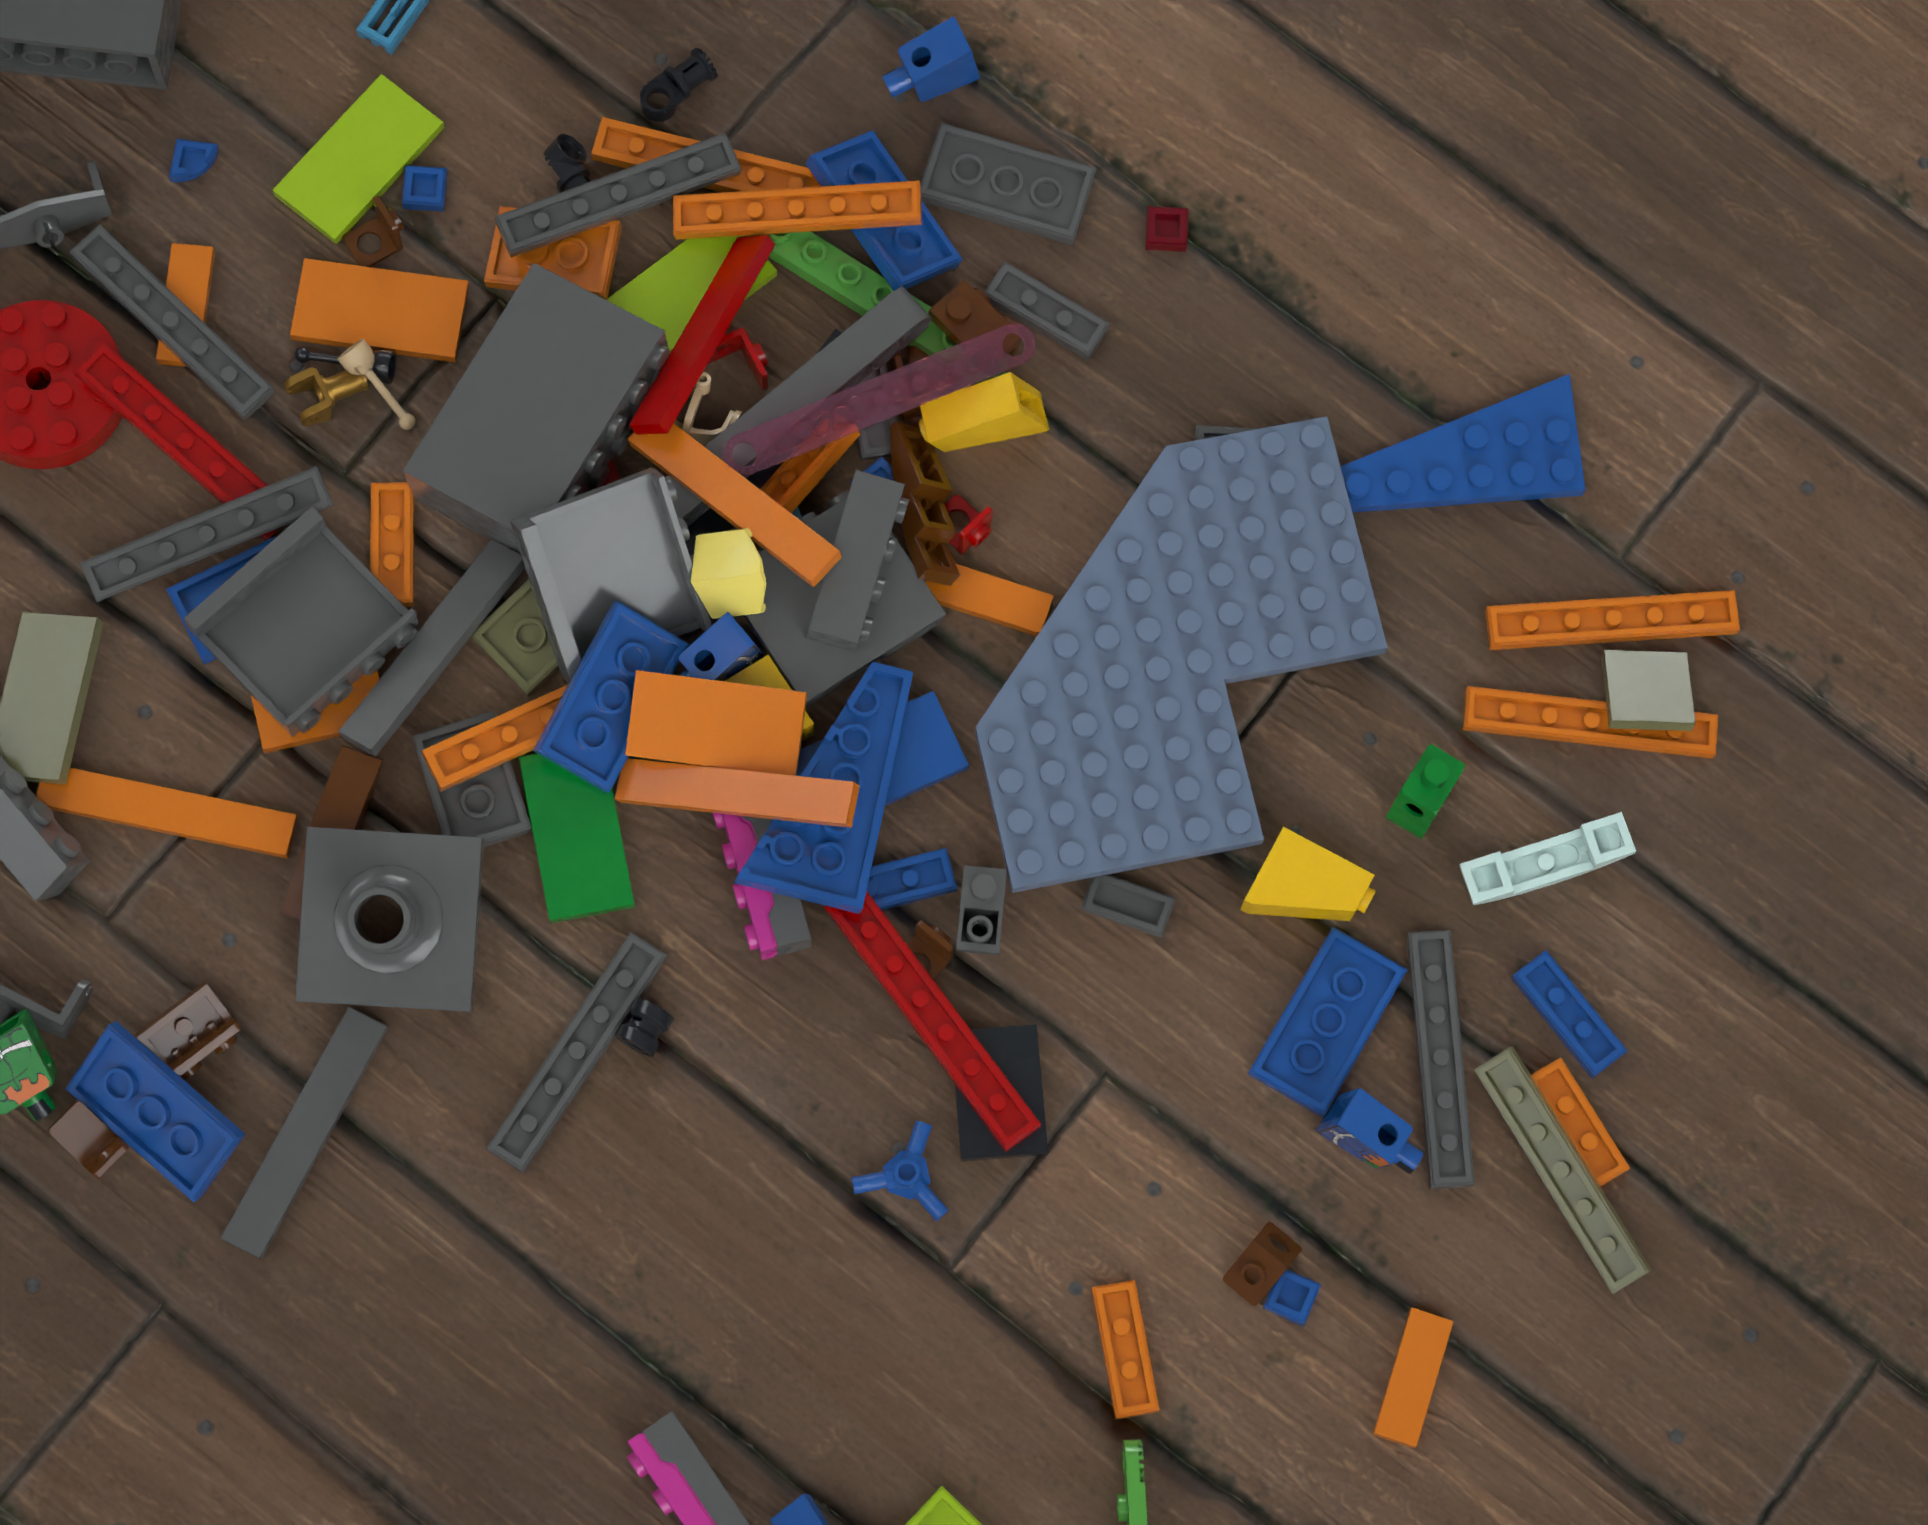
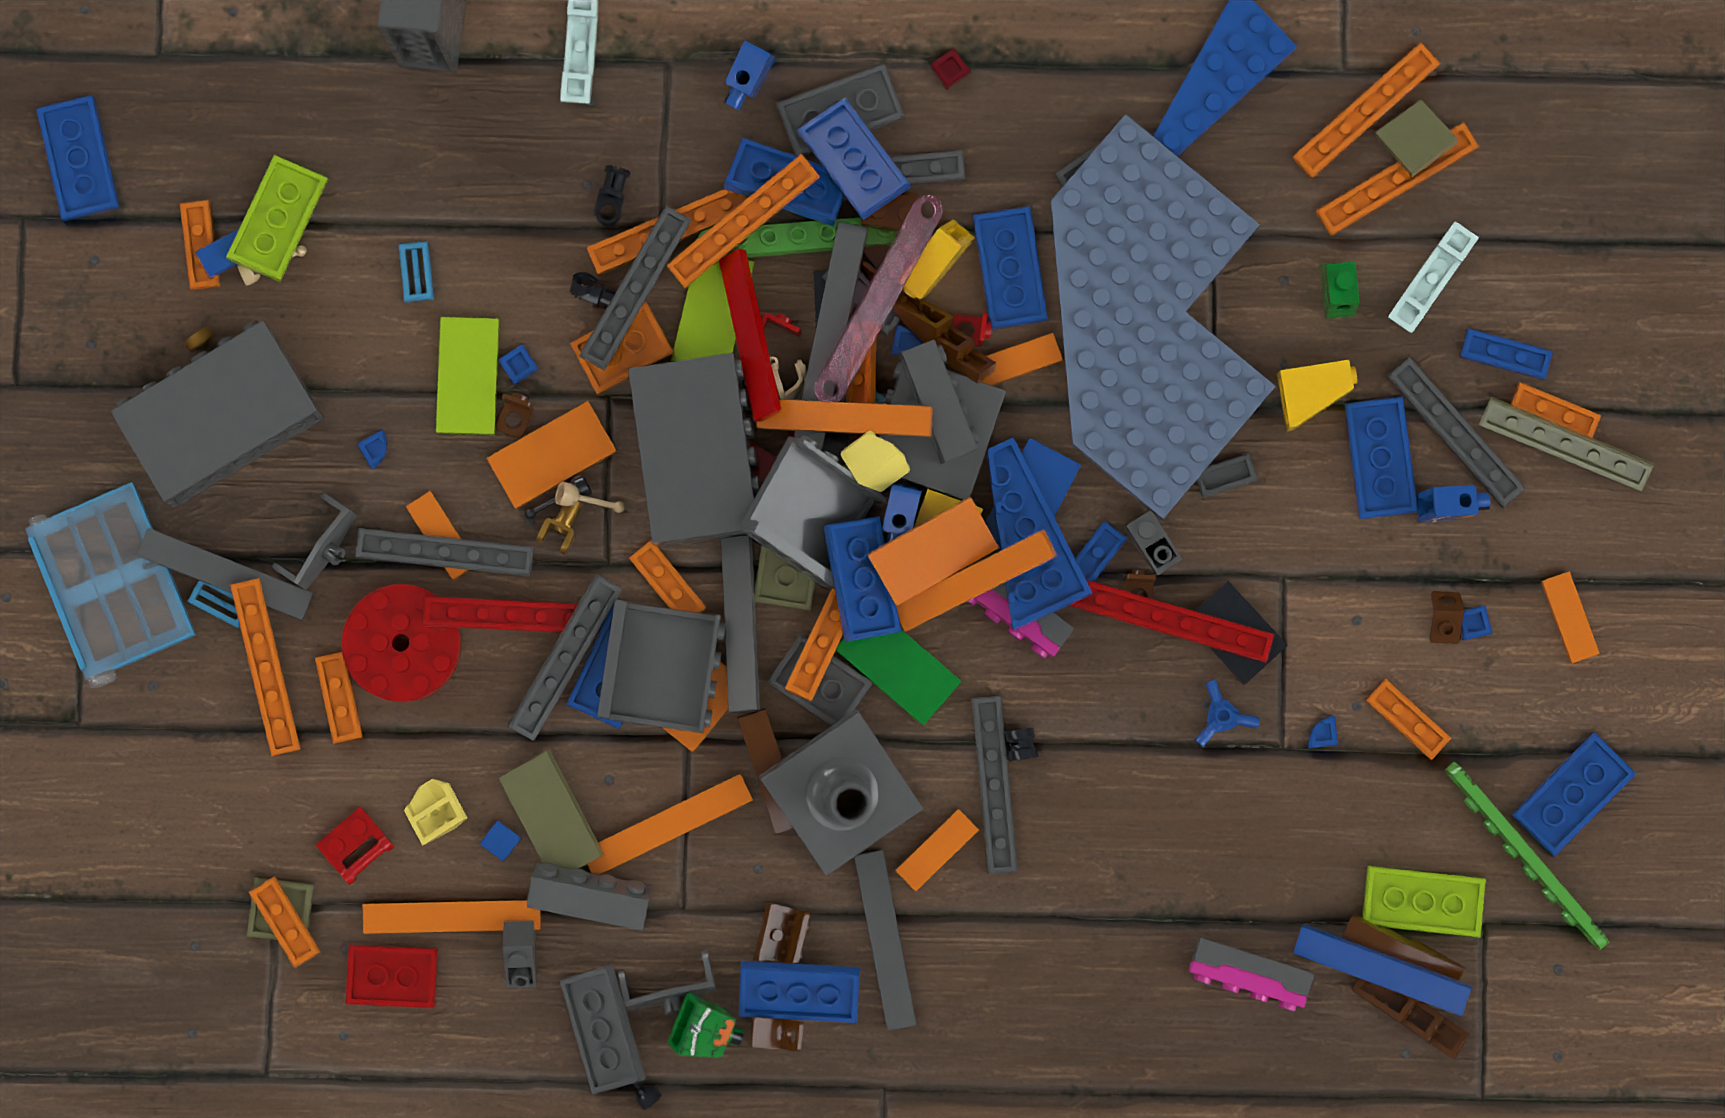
camera: 30 degrees left, 10 degrees up
(449, 1075) = (937, 850): none -> orange tile
(977, 237) = (854, 158): none -> blue tile
(1010, 1289) = (1323, 733): none -> blue tile
(1062, 491) = (1010, 268): none -> blue tile

